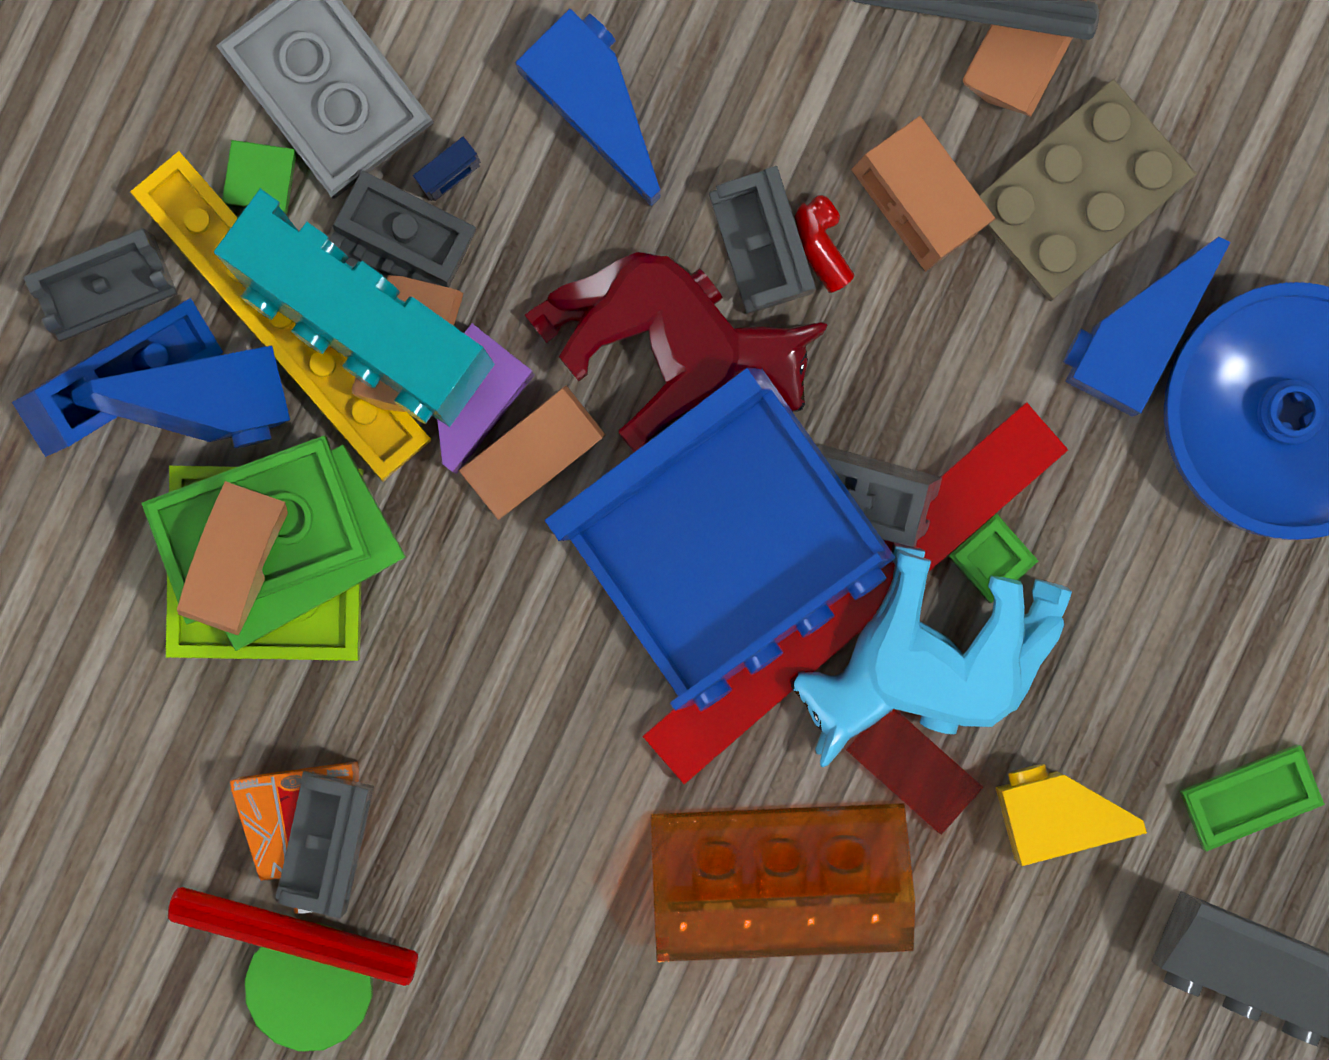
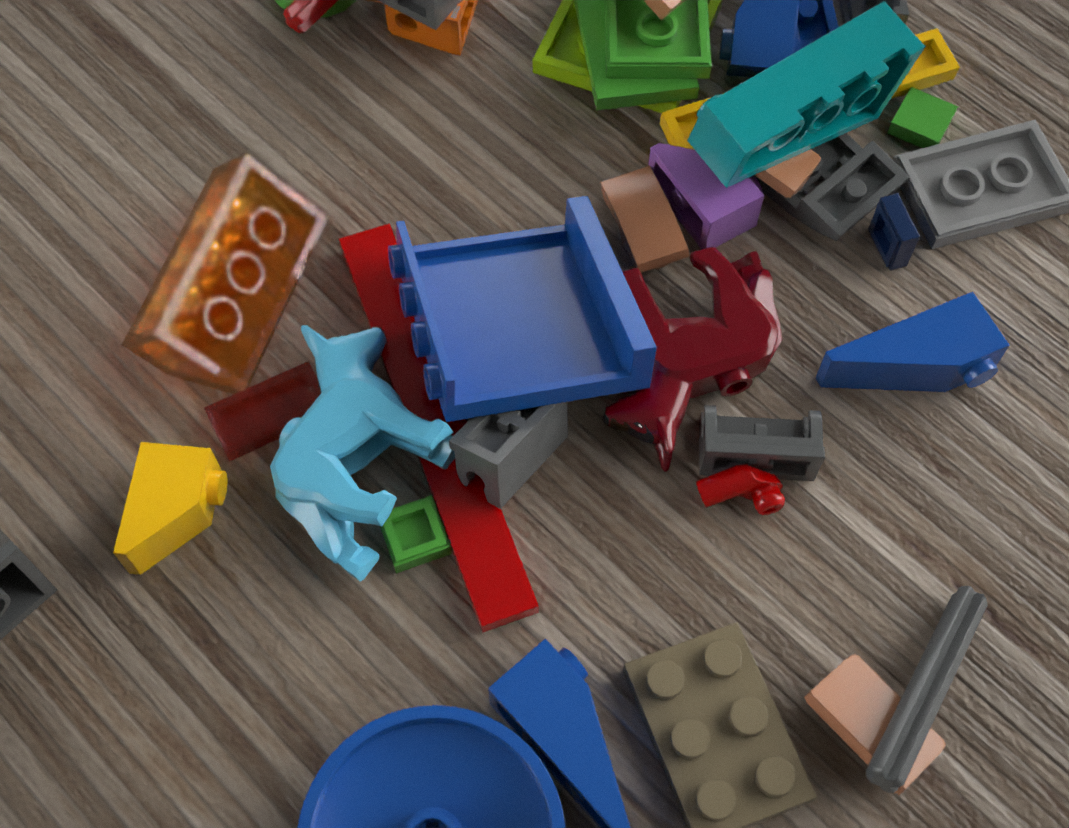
camera: 110 degrees right, 25 degrees down
(922, 193) = (760, 582): nougat hinge -> none
(1251, 797) = (101, 678): bright green tile -> none

